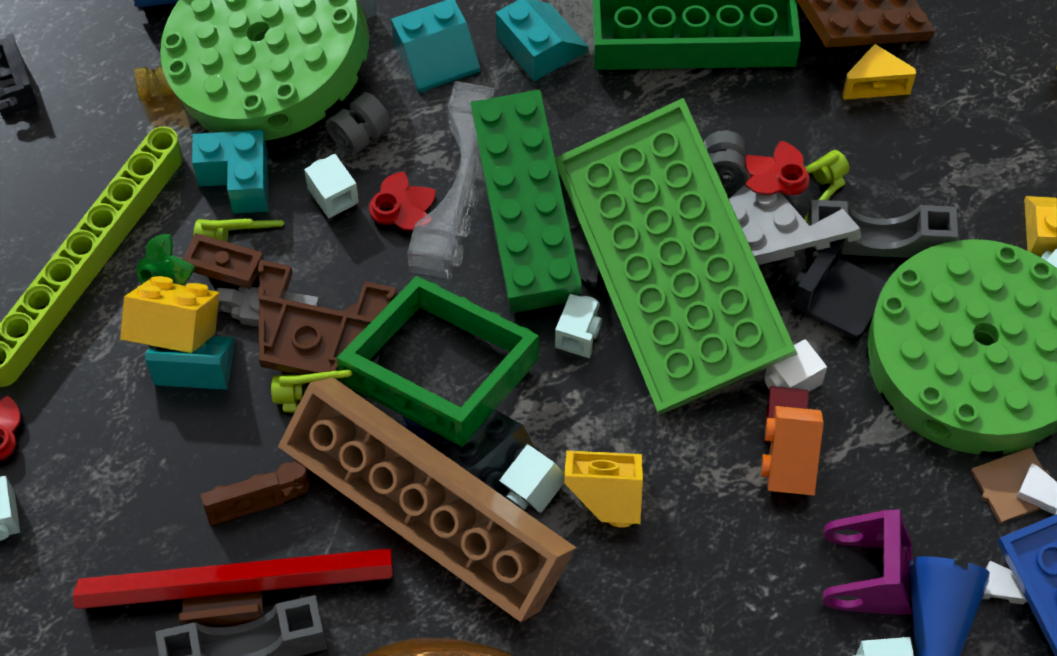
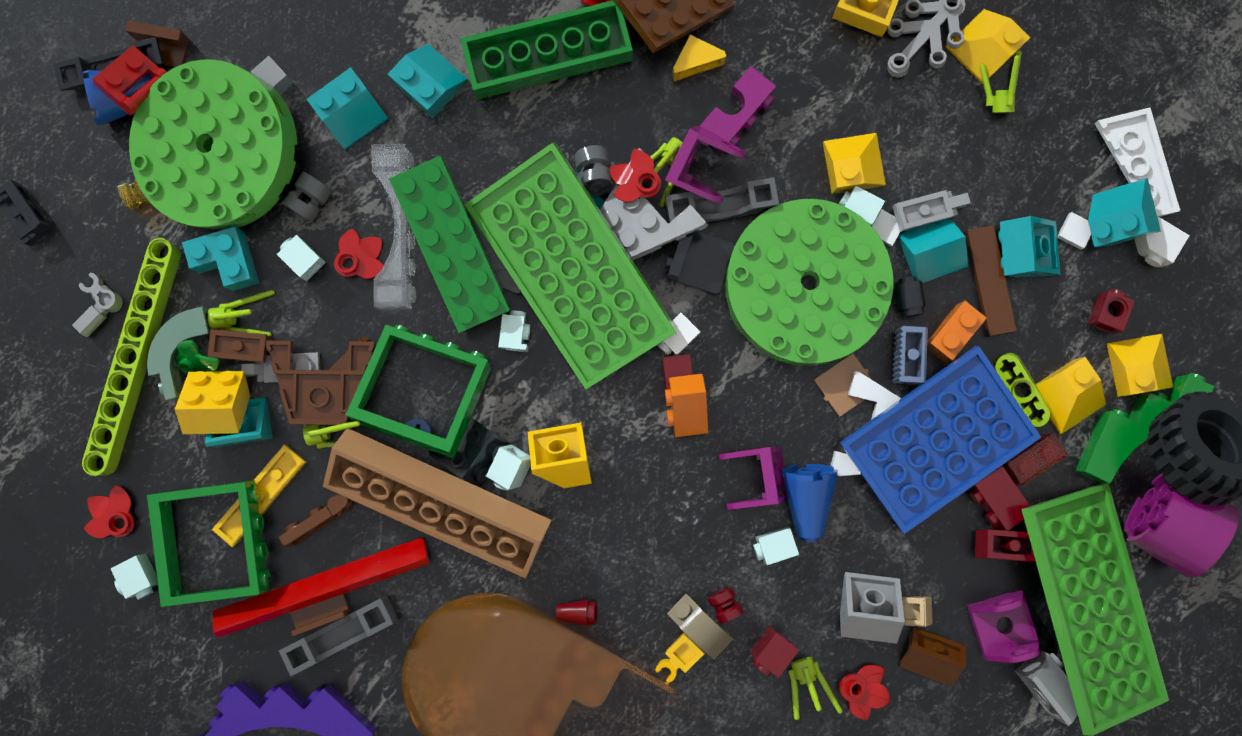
camera: 15 degrees left, 25 degrees up
(46, 477) = (166, 549): none -> green window
(74, 190) = (106, 302): none -> light grey bar
(130, 244) = (161, 357): none -> sand green arch
(187, 451) = (269, 485): none -> yellow tile
(850, 156) = (678, 172): none -> magenta hose
(900, 155) = (754, 93): none -> magenta arch

